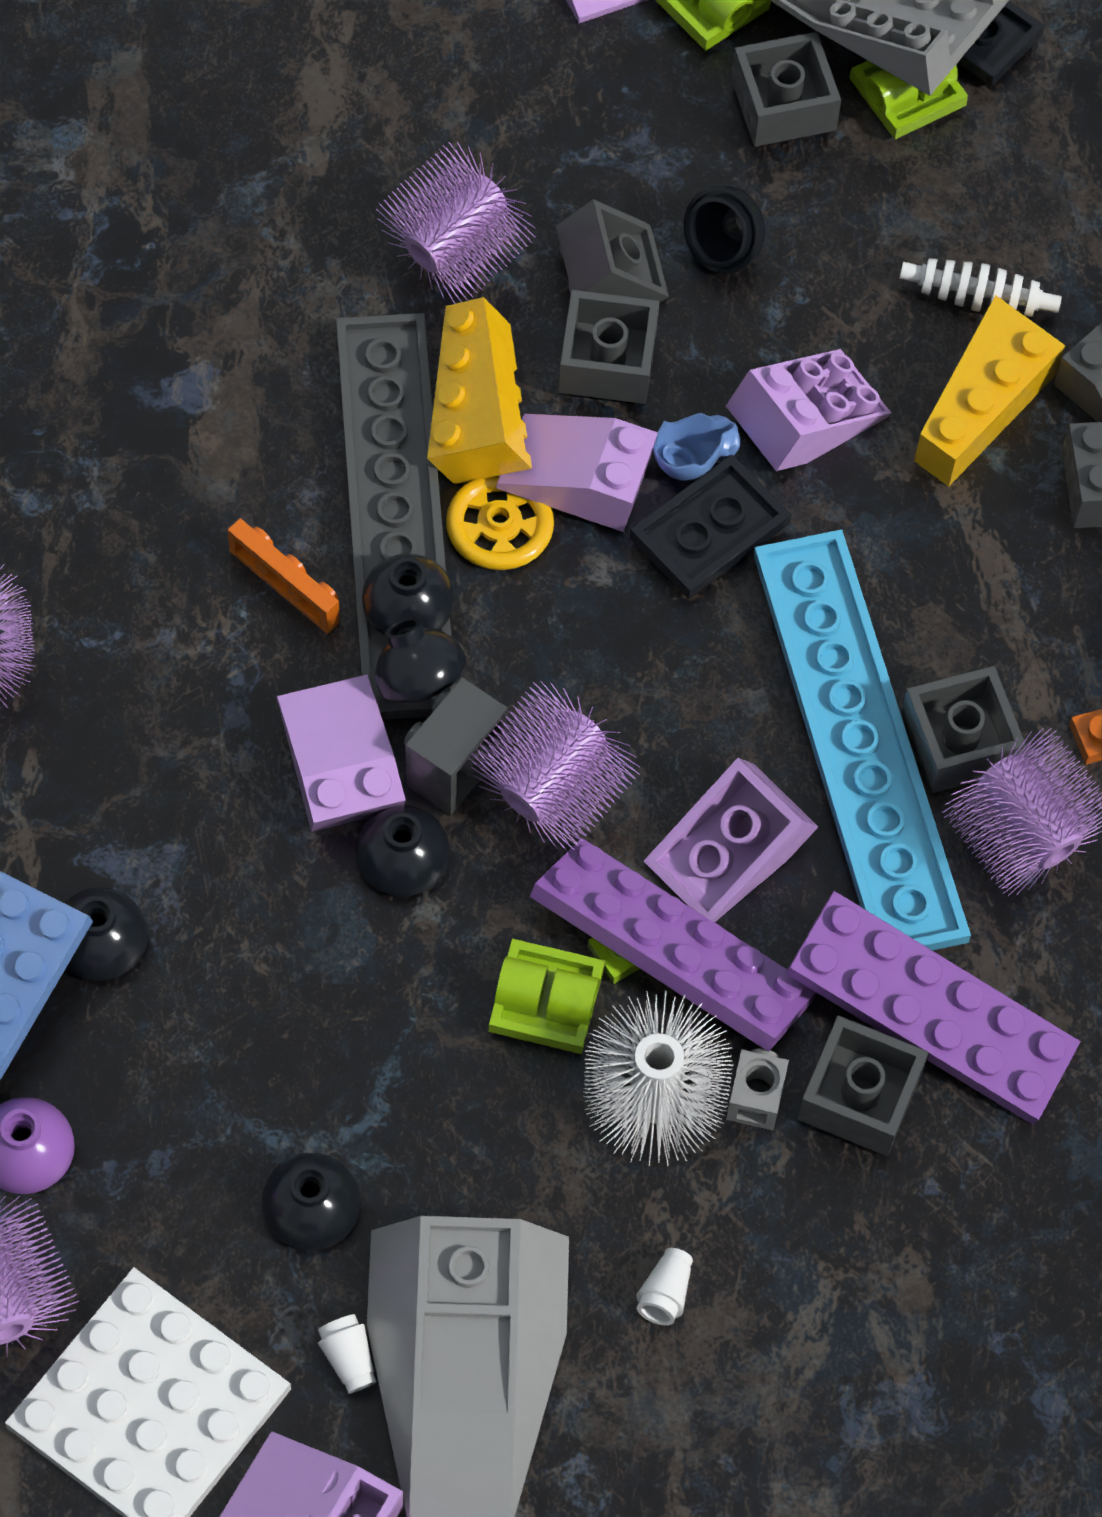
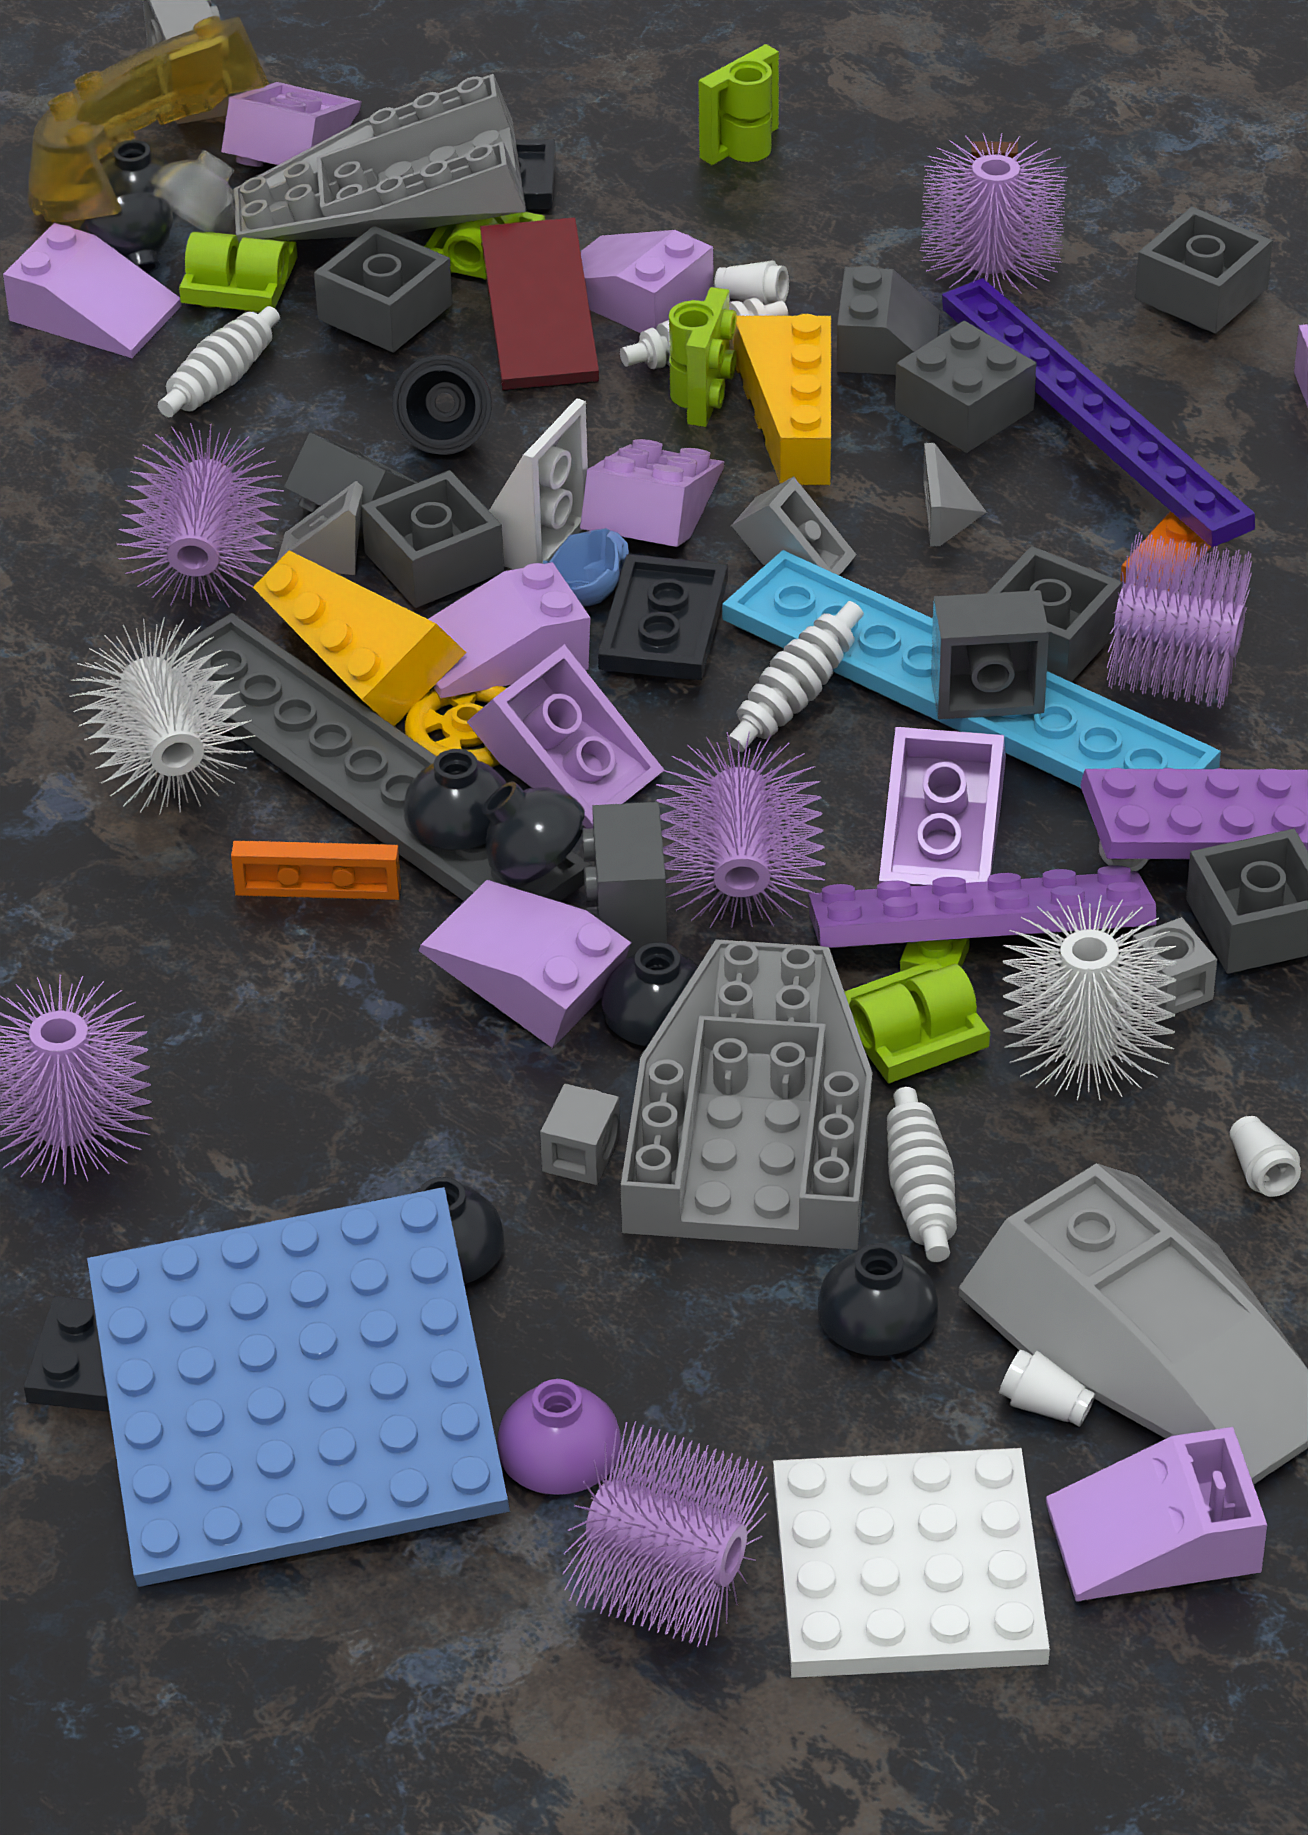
camera: 35 degrees left, 20 degrees down
(251, 920) = (580, 1134): none -> light grey brick
(275, 383) = (162, 716): none -> white piece
(373, 982) = (752, 1105): none -> light grey wedge
(432, 1123) = (921, 1174): none -> white piece
(536, 592) = (565, 735): none -> lavender slope
(547, 288) = (329, 533): none -> light grey slope
(623, 73) = (218, 361): none -> white piece
(704, 370) = (545, 492): none -> white slope
(740, 650) = (795, 676): none -> white piece
(862, 742) = (989, 654): none -> dark grey brick
(863, 513) = (792, 522): none -> light grey slope
(882, 179) = (539, 303): none -> dark red tile
(945, 313) = (701, 354): none -> lime plate
(982, 199) = (645, 275): none -> lavender slope
(1007, 565) = (947, 498): none -> light grey slope
(1063, 265) = (755, 280): none -> white cone

